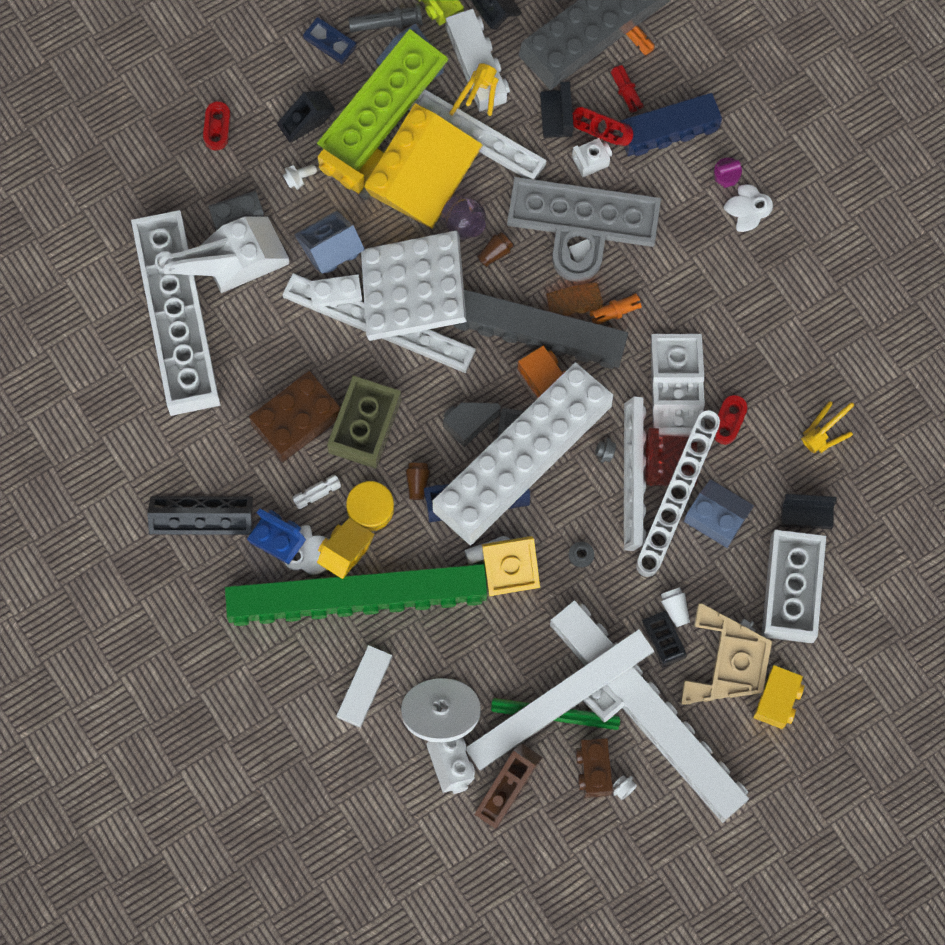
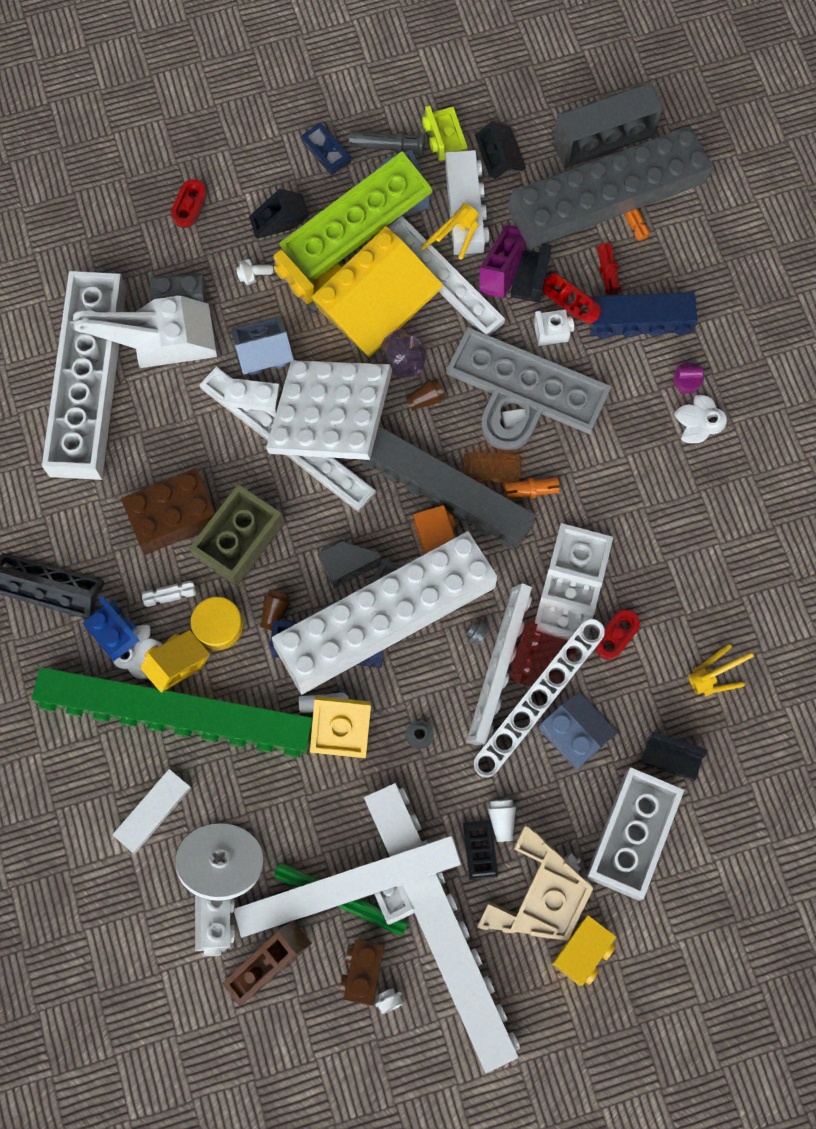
camera: 20 degrees right, 0 degrees up
(528, 108) = (502, 262): none -> magenta slope

